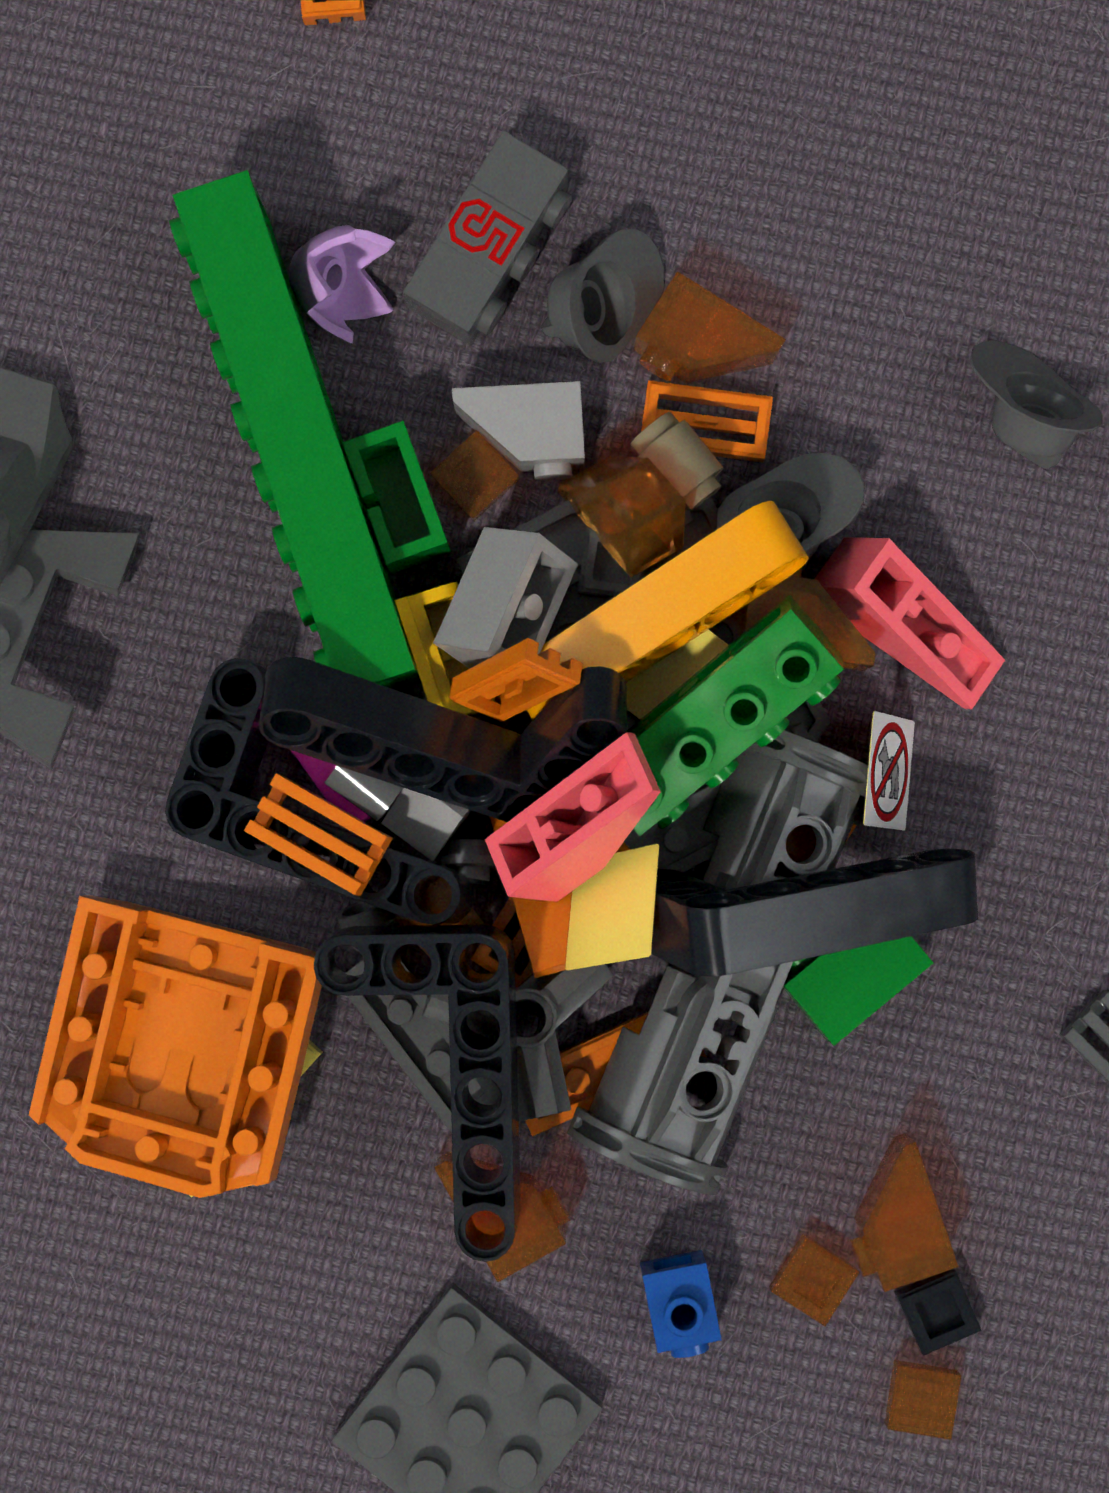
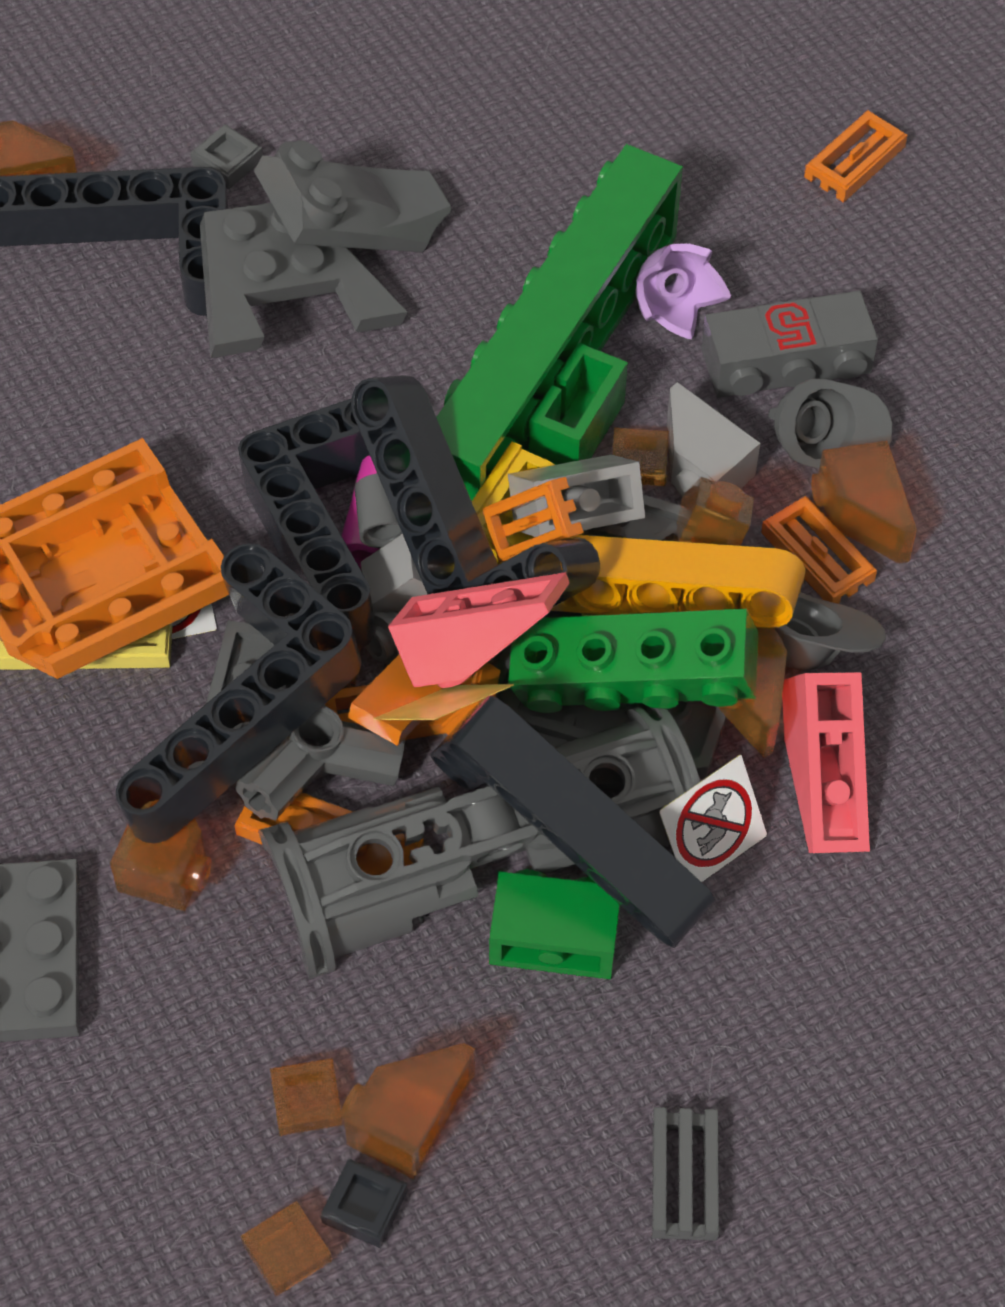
camera: 45 degrees right, 30 degrees down
(271, 808) = (310, 477): orange tile -> none
(680, 458) = (775, 523): dark tan brick -> none
(681, 1304) = (204, 1009): blue brick -> none

